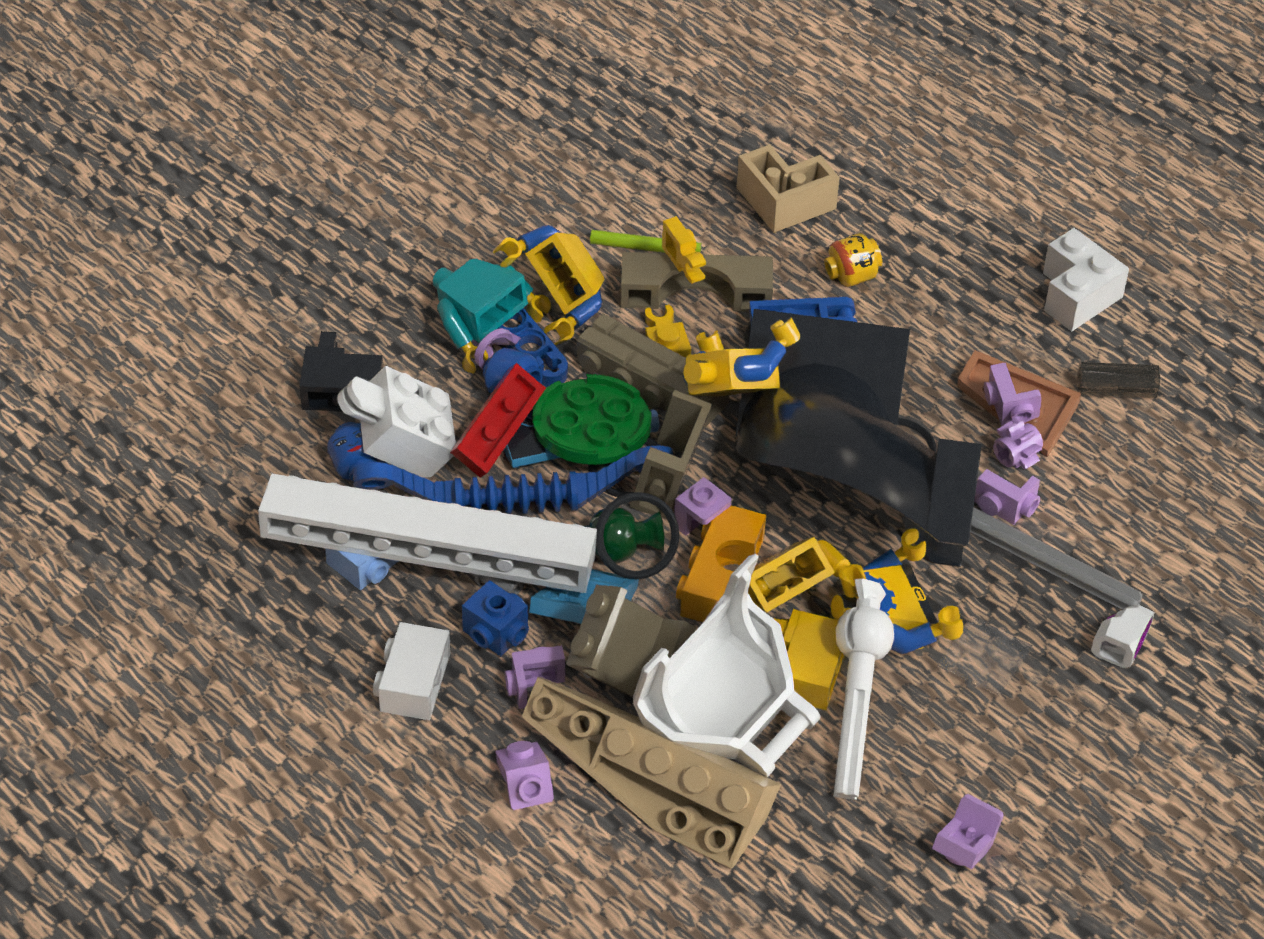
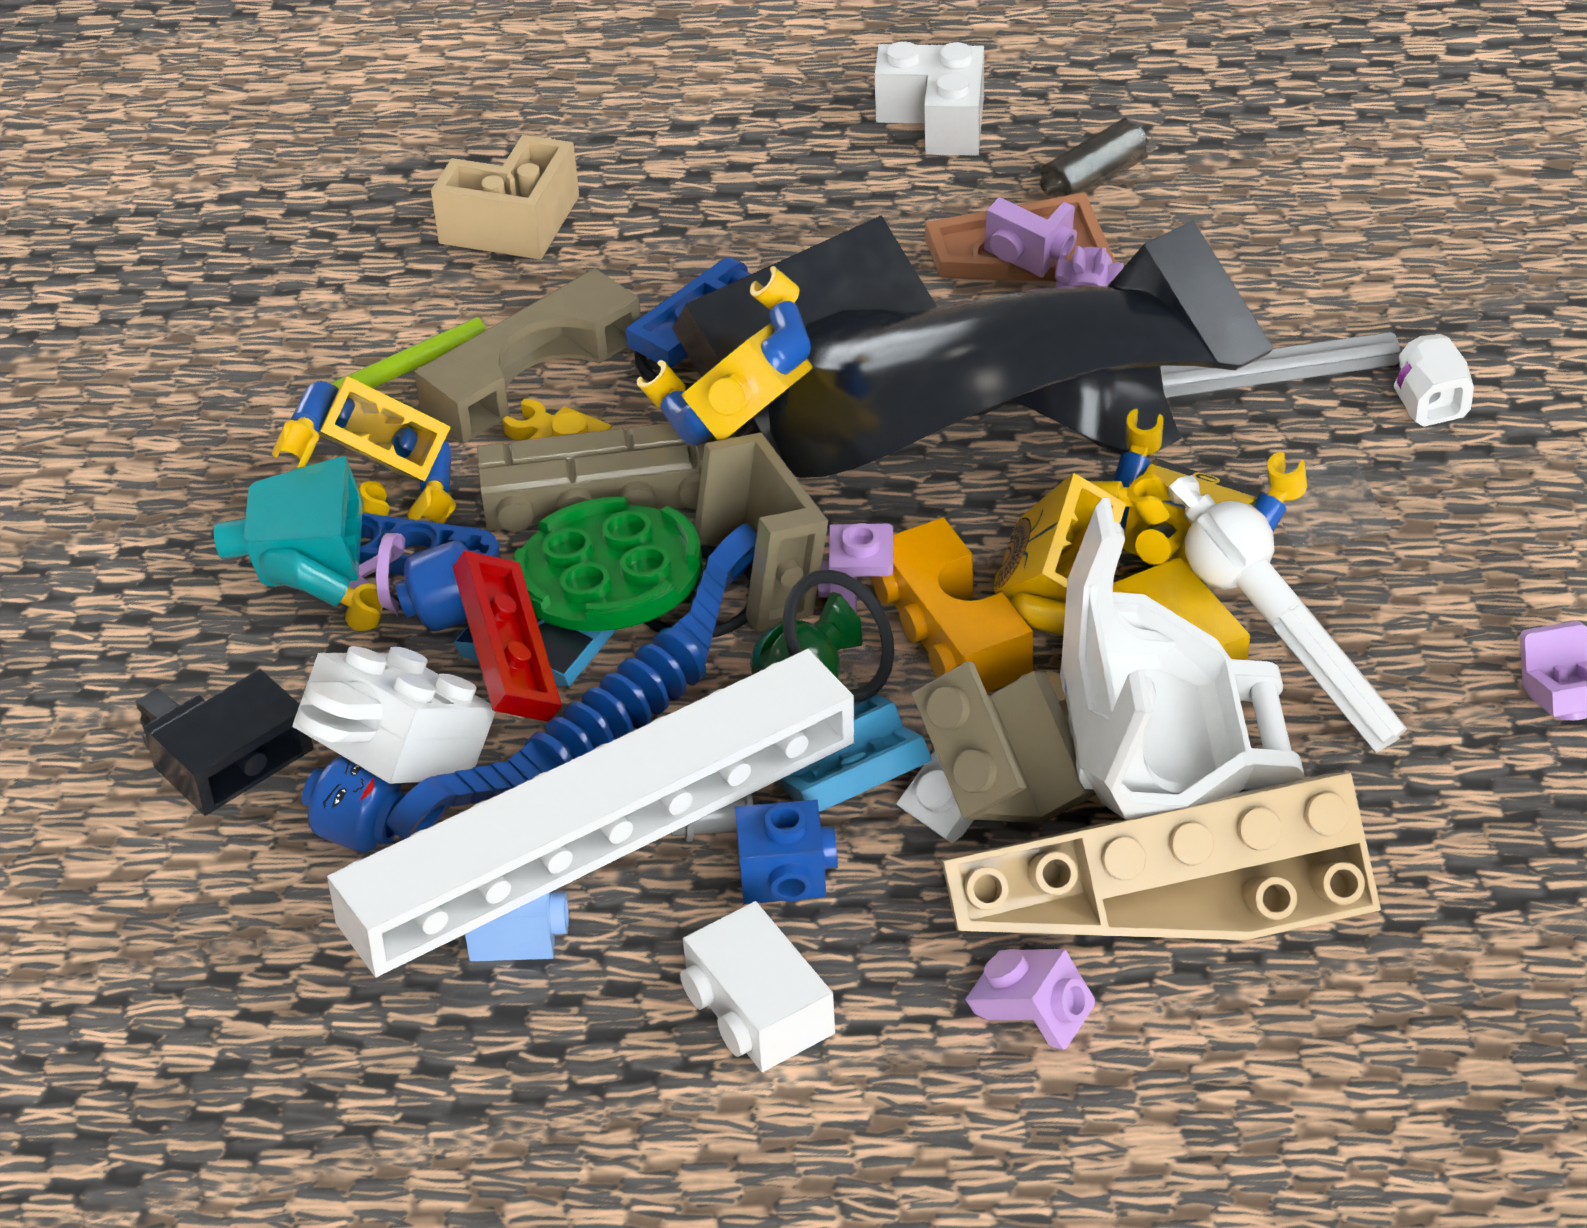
camera: 40 degrees left, 5 degrees down
(534, 663) = (893, 877): lavender bracket -> none
(681, 249) = (491, 317): yellow plate -> none
(853, 260) = (675, 222): yellow head -> none

